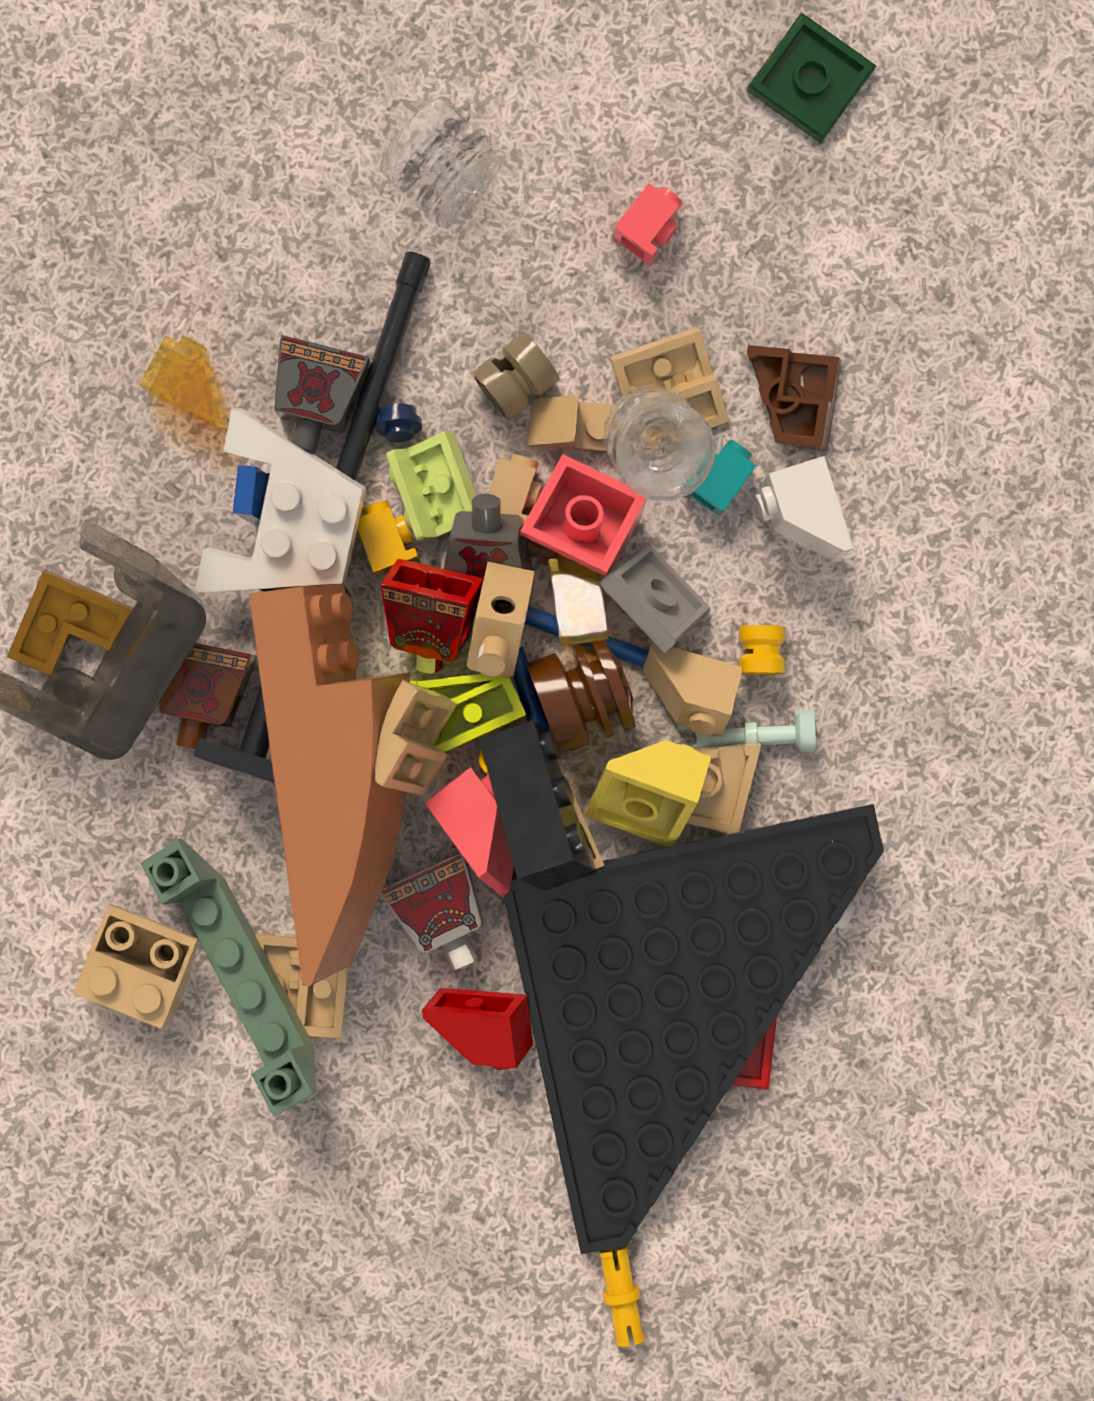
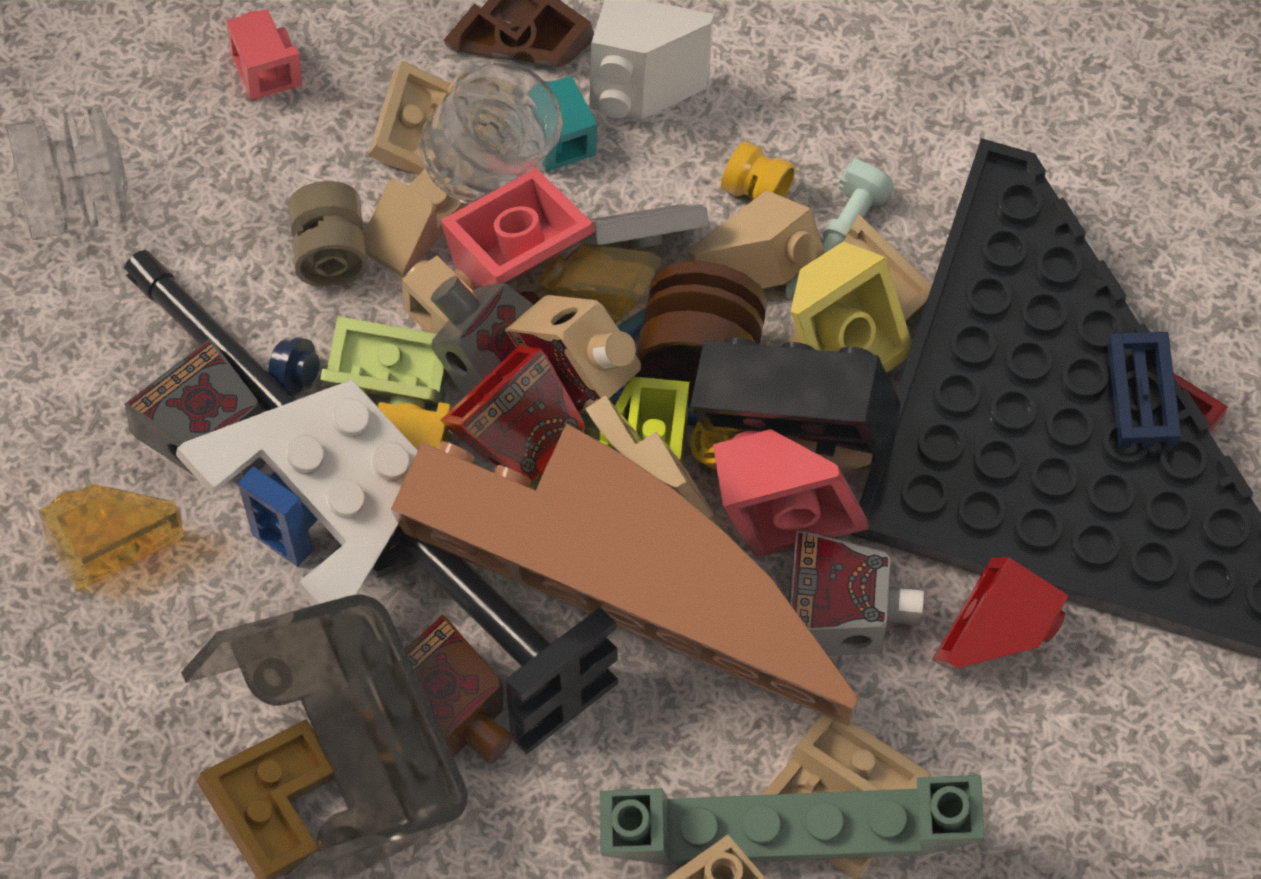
camera: 65 degrees left, 30 degrees down
(756, 1012) = (1147, 432): none -> dark blue tile

